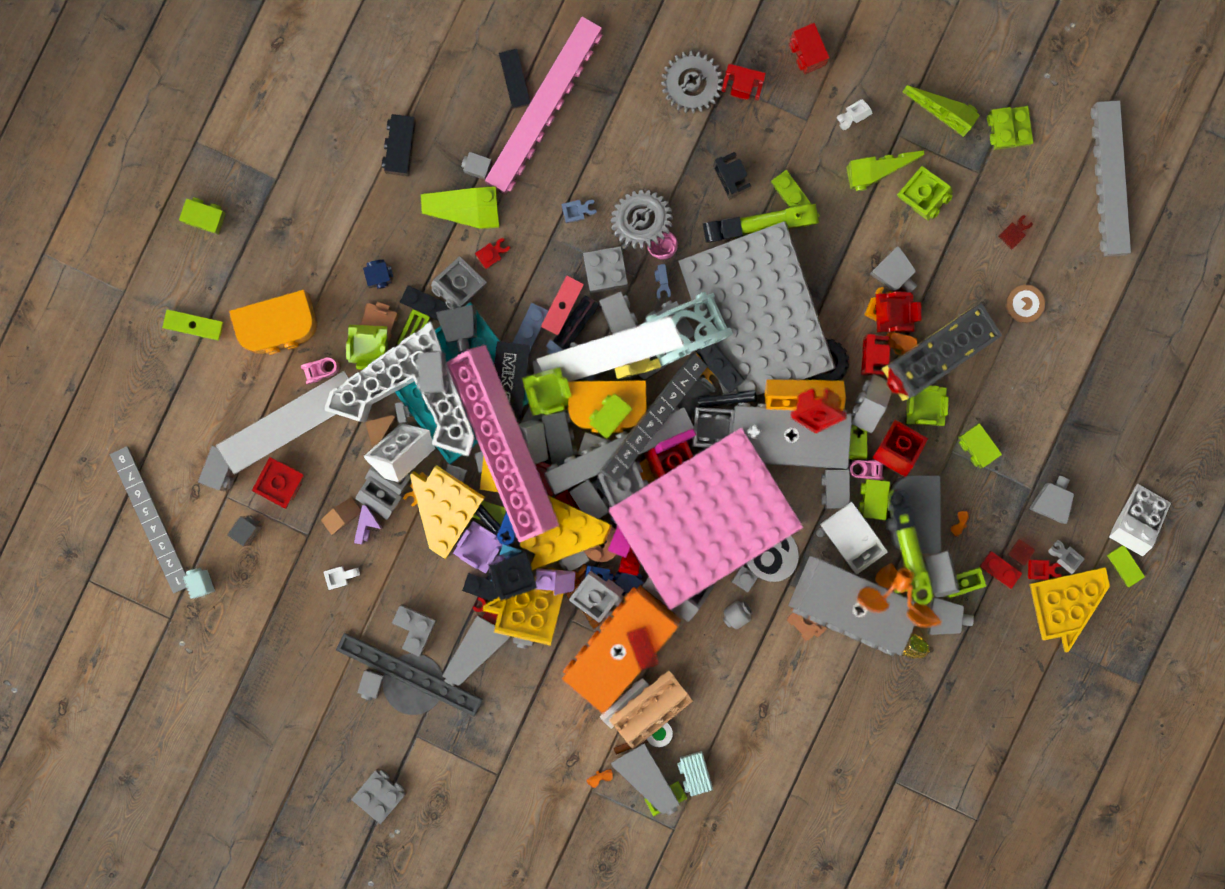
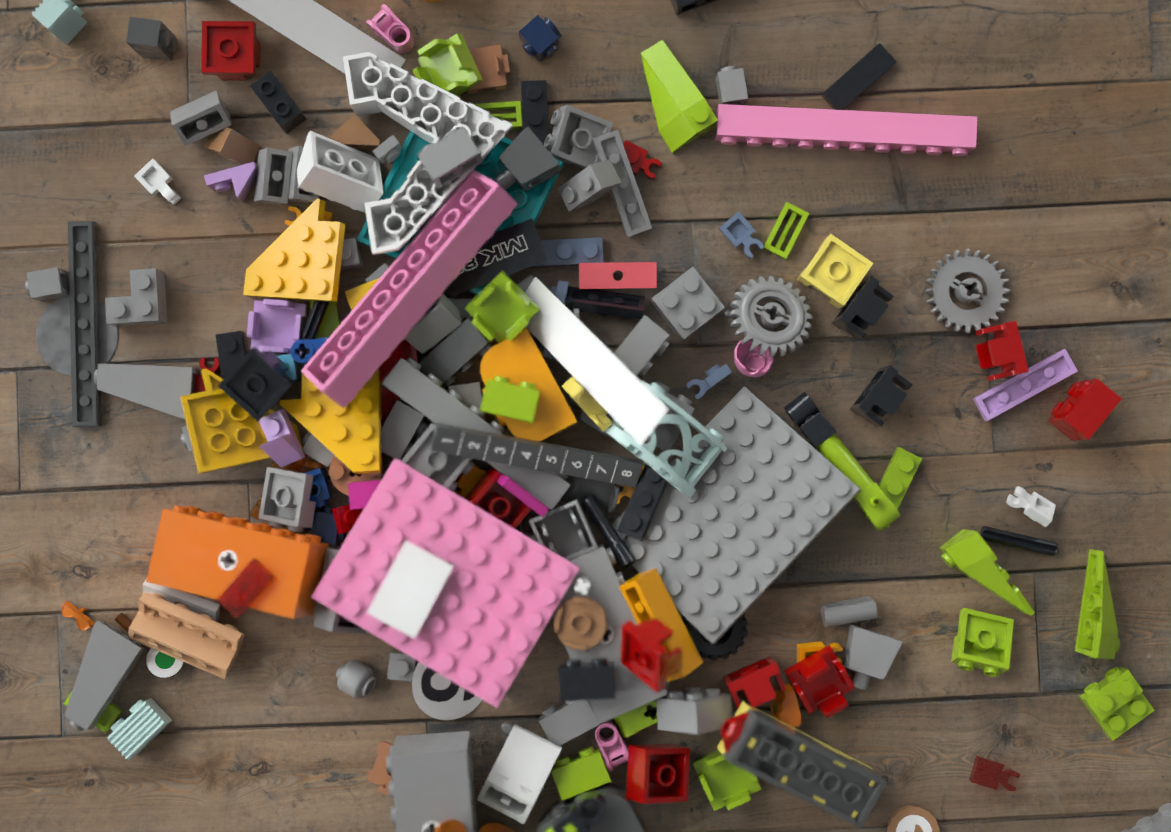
camera: 60 degrees right, 0 degrees up
(314, 525) = (200, 118): none -> light grey brick
(330, 469) = (278, 102): none -> black brick
(494, 293) = (589, 185): none -> light grey brick
(503, 270) = (626, 194): none -> light grey plate
(599, 193) = (775, 250): none -> lime tile
(634, 161) = (835, 271): none -> light yellow panel
(668, 156) = (863, 308): none -> black panel
(698, 542) = (410, 589): none -> white tile
(773, 78) = (1025, 385): none -> lavender plate
(776, 445) = (580, 623): none -> medium nougat tile
(815, 460) = (587, 680): none -> black brick
(860, 270) = (848, 611): none -> light grey brick
(873, 134) = (1019, 541): none -> black axle

